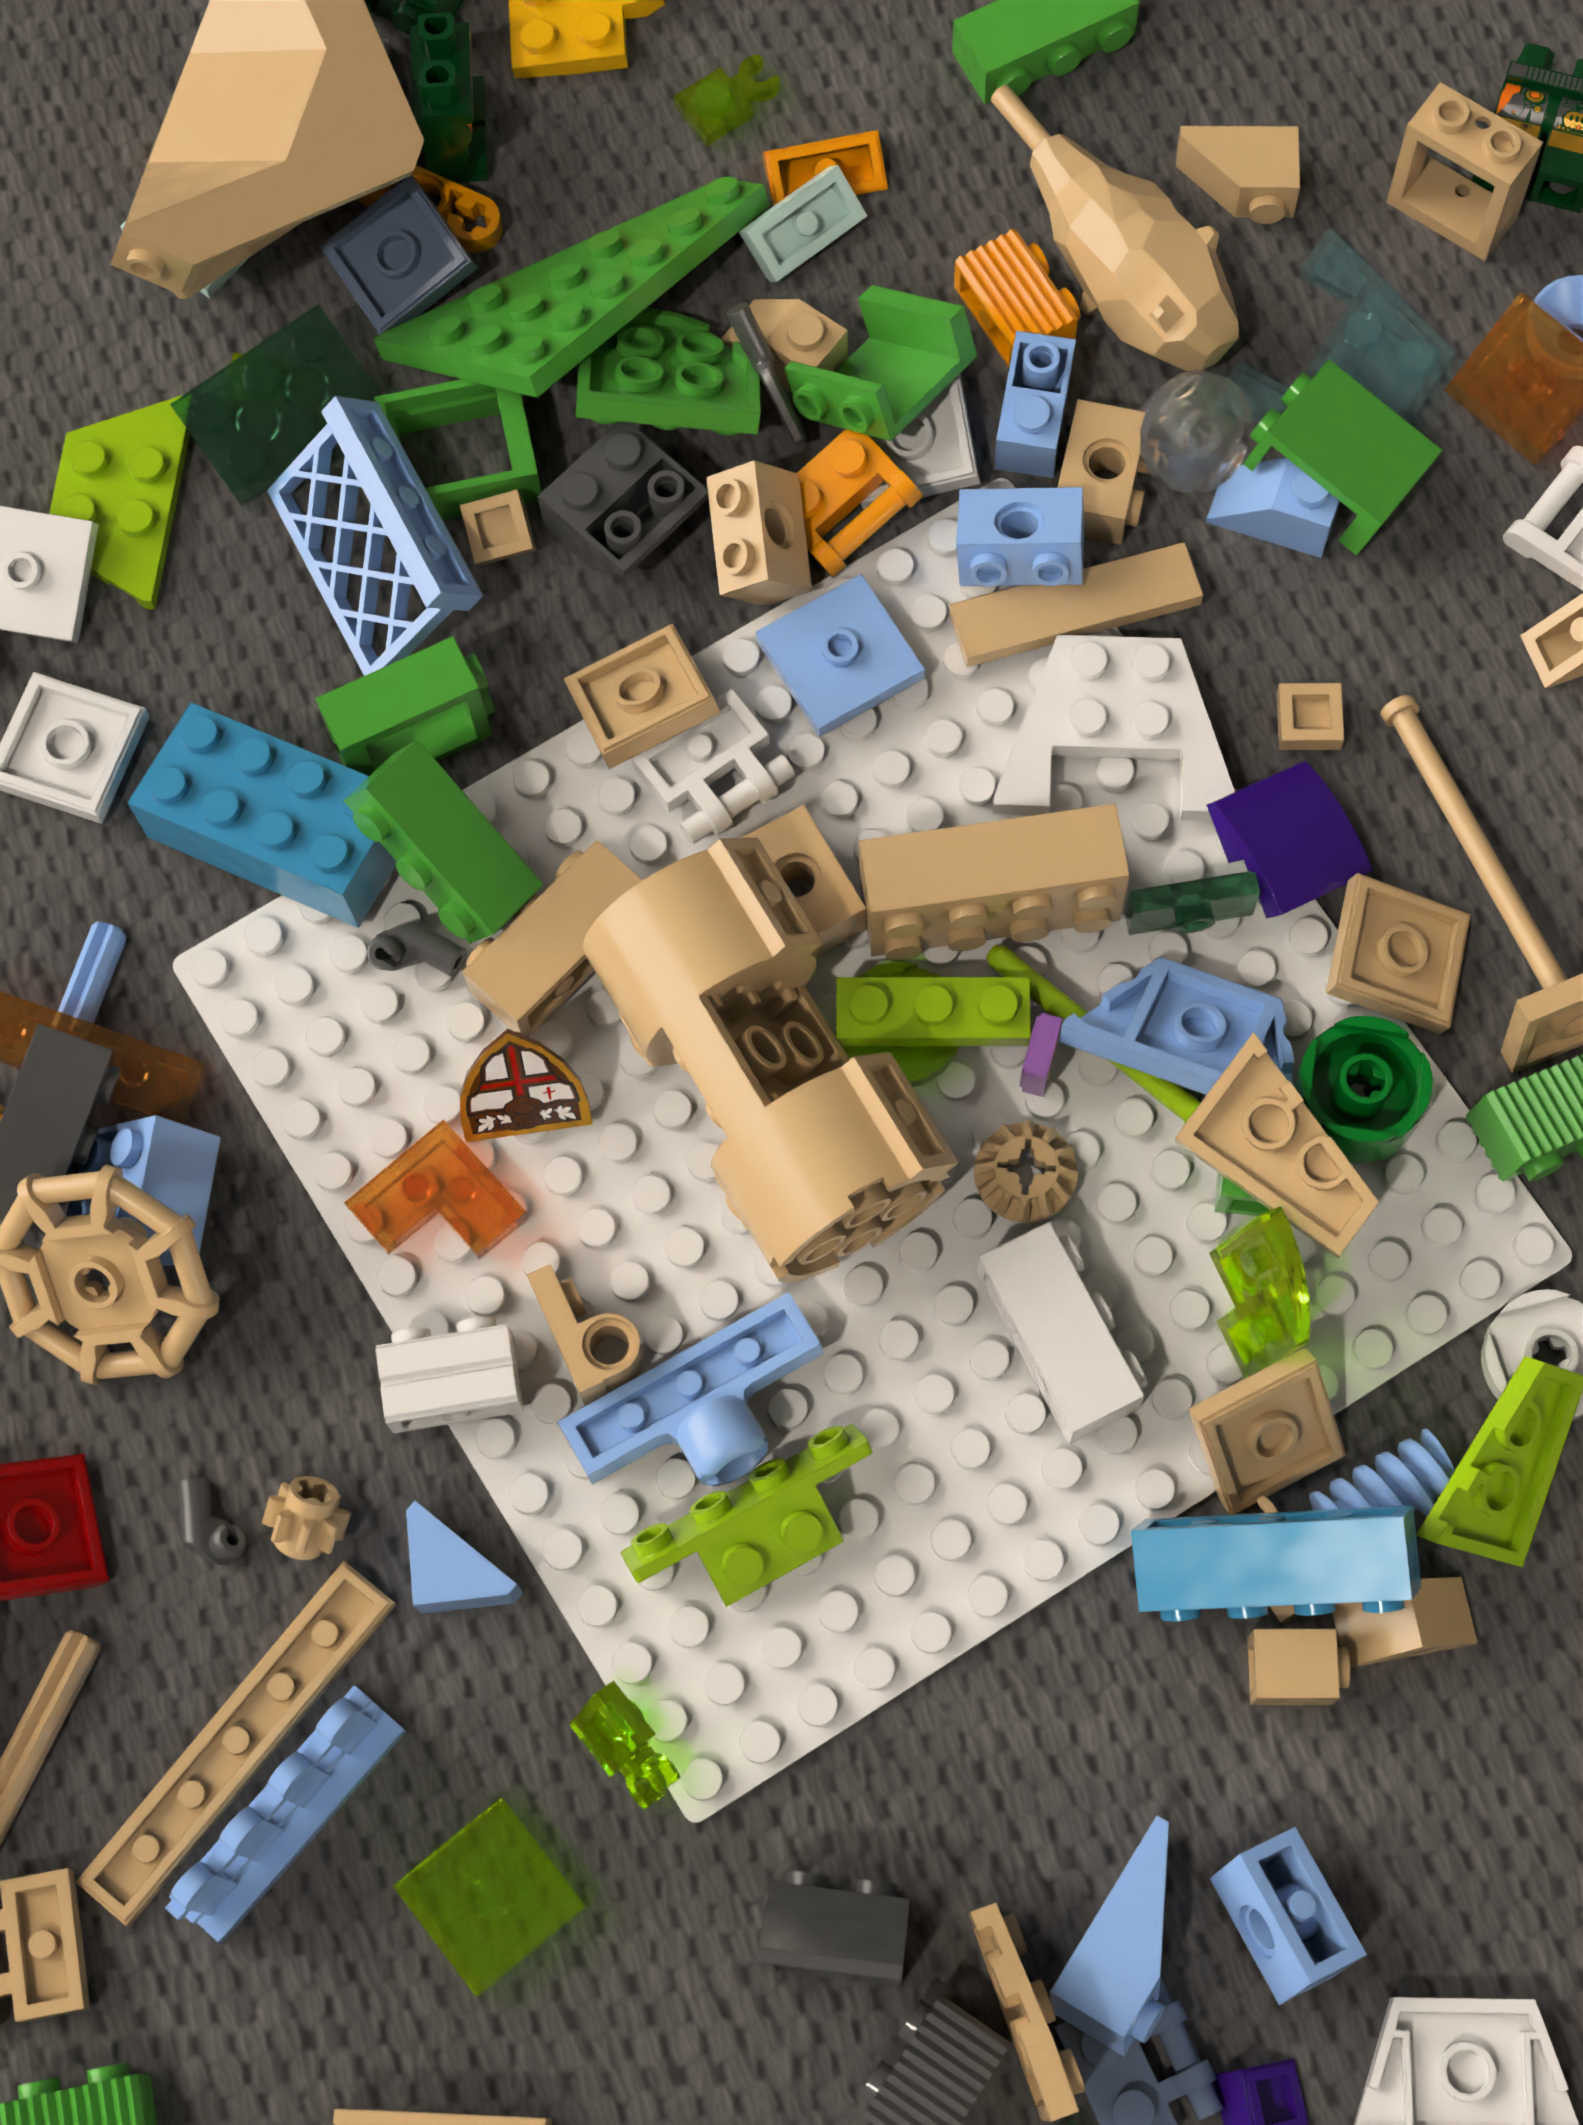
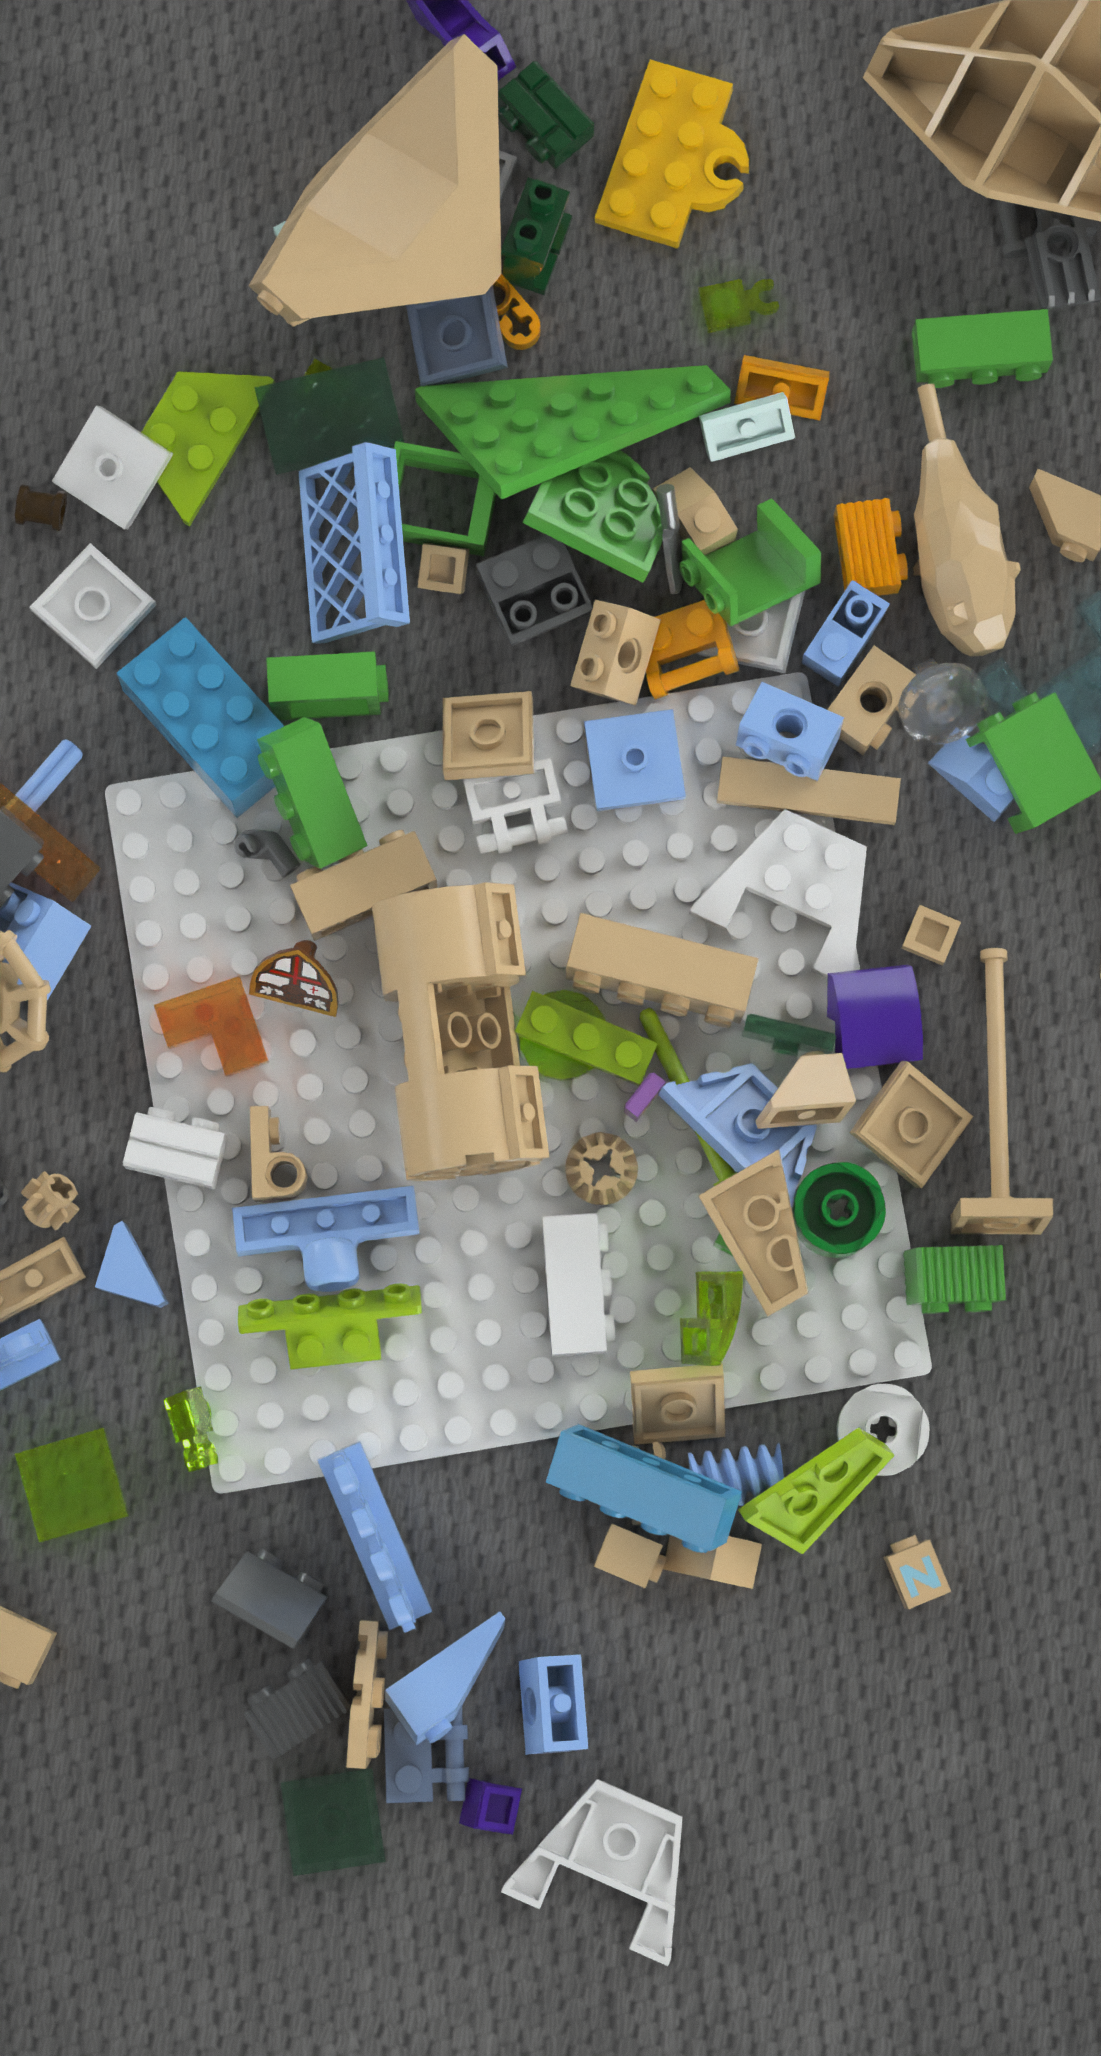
camera: 15 degrees right, 10 degrees up
(804, 855) = (543, 888): tan brick -> none
(939, 1789) = (375, 1536): none -> light blue fence
(1257, 958) = (811, 1093): none -> tan slope

